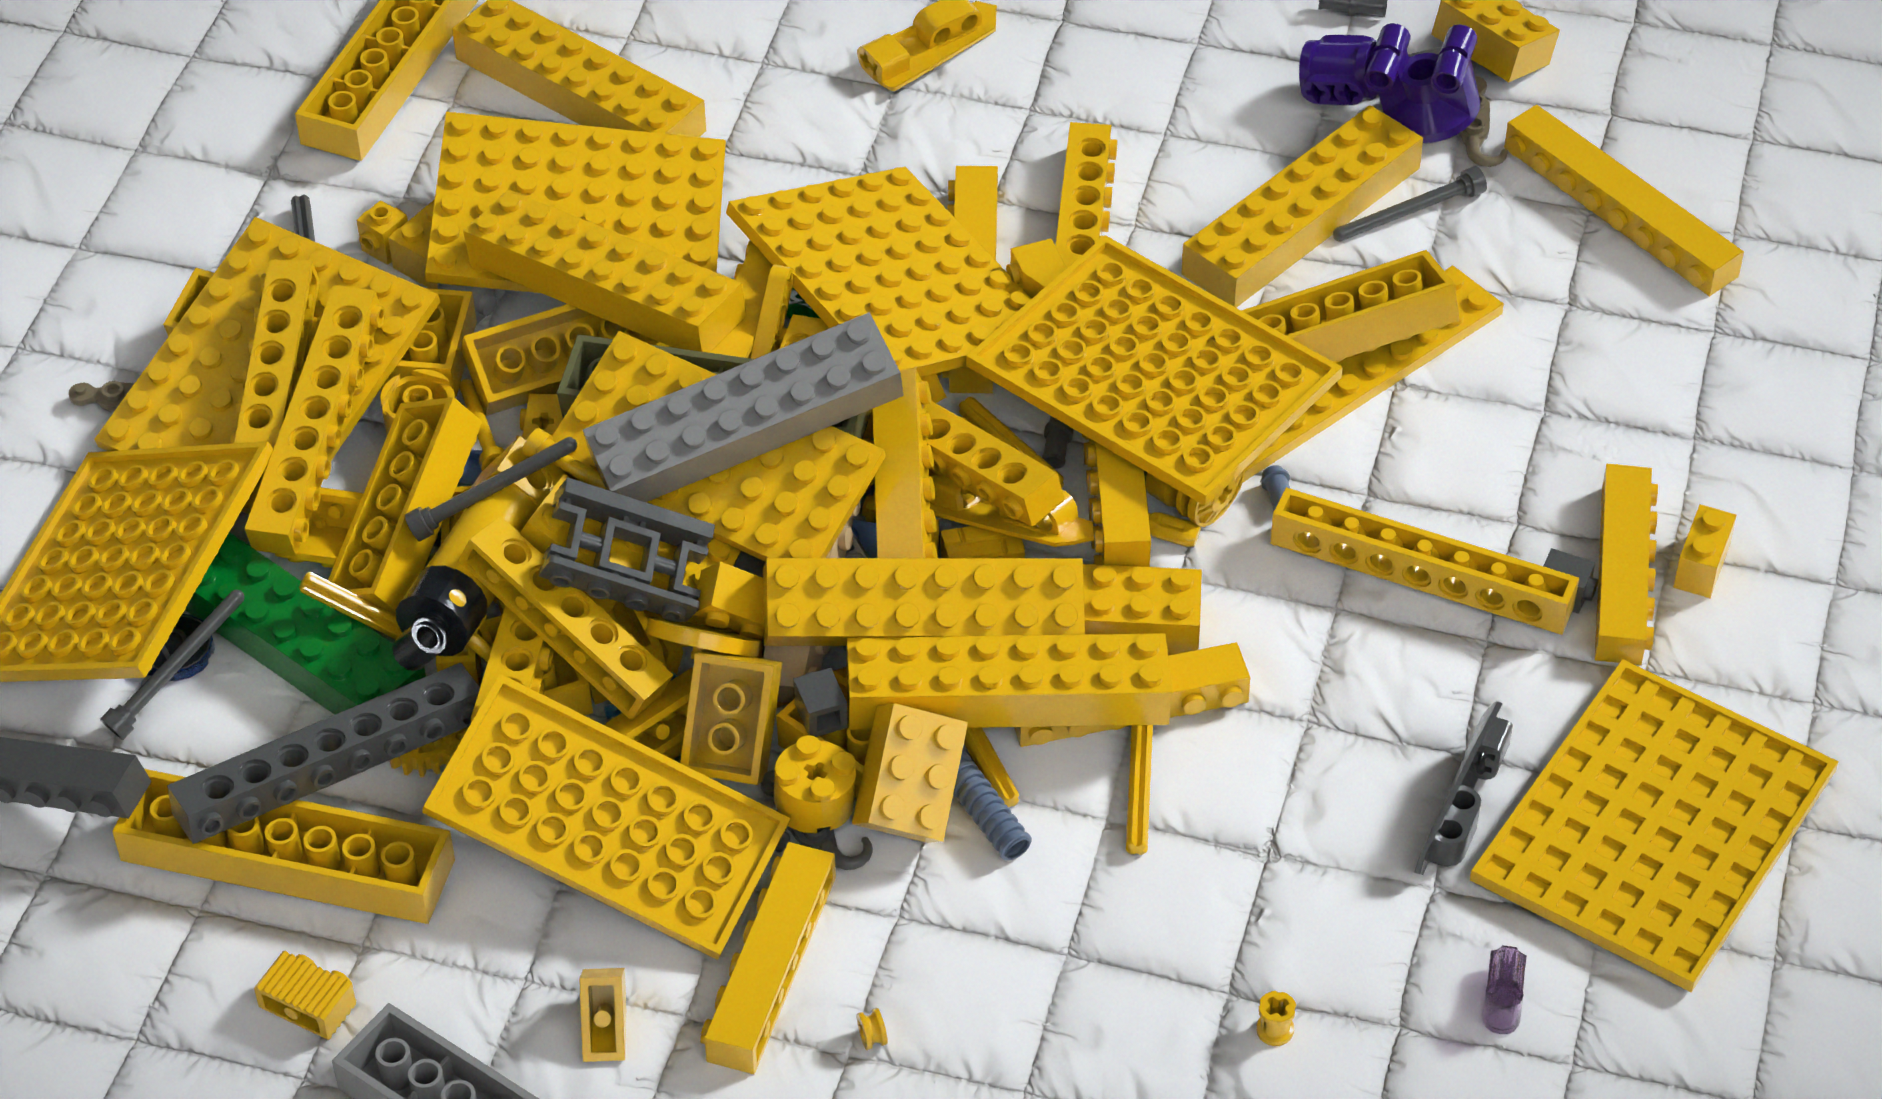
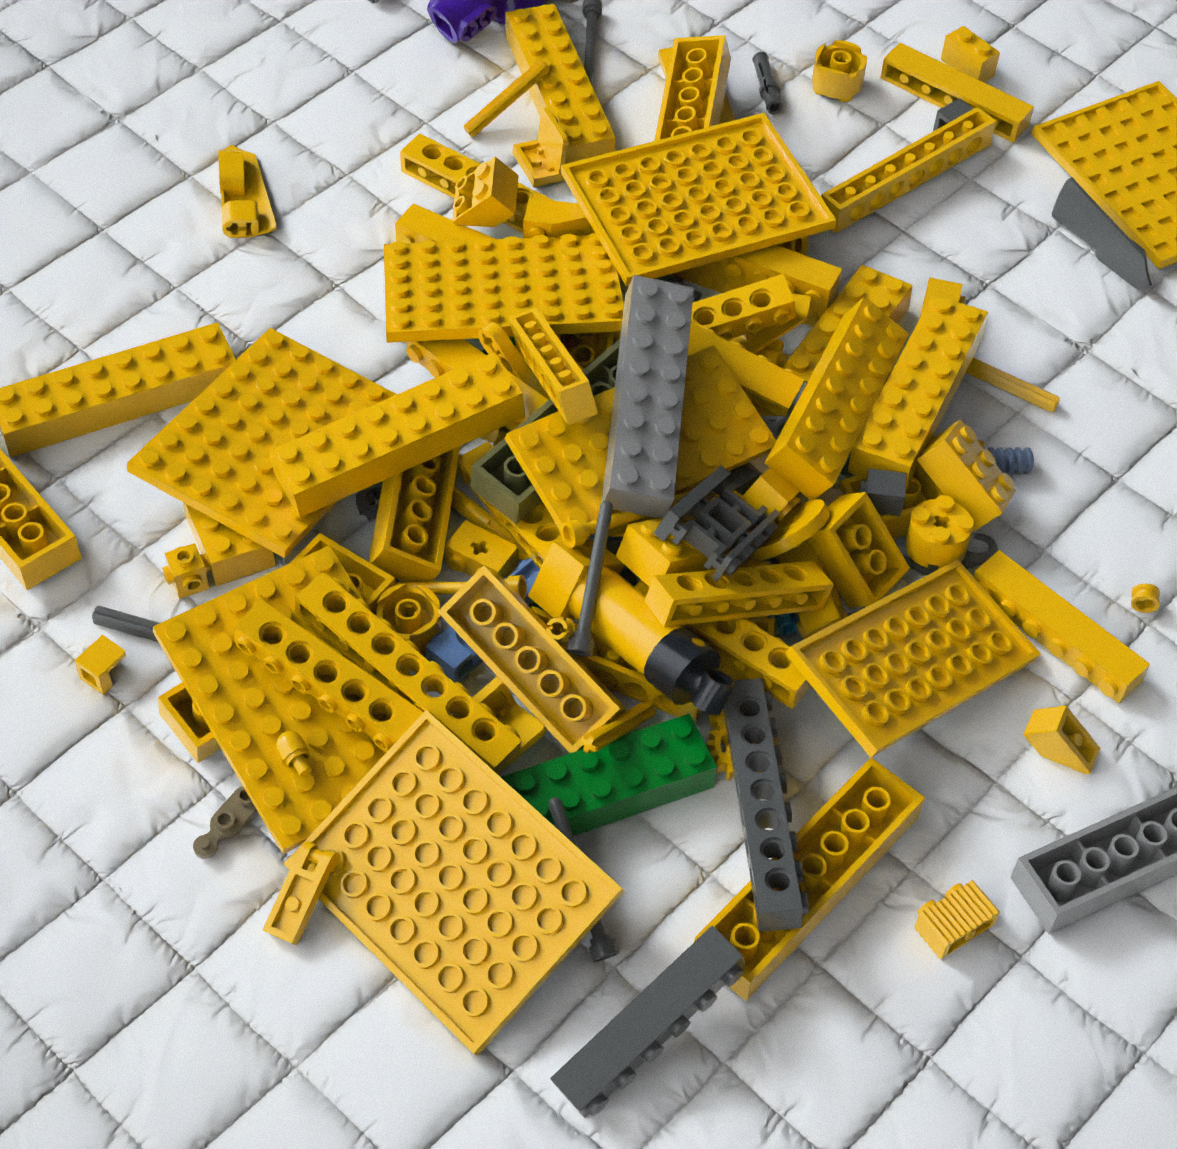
camera: 65 degrees left, 5 degrees up
(56, 473) = (300, 893): none -> yellow plate
(185, 384) = (294, 752): none -> yellow cylinder
(231, 222) = (97, 661): none -> yellow panel
(427, 496) = (558, 623): none -> yellow pin
(735, 325) = (553, 366): none -> yellow brick
(1039, 210) = (486, 195): none -> yellow slope
(1165, 236) = (543, 157): none -> yellow bracket
(1230, 167) = (506, 98): none -> yellow axle
(1470, 388) = (769, 89): none -> dark grey pin
(1552, 434) = (839, 70): none -> yellow brick

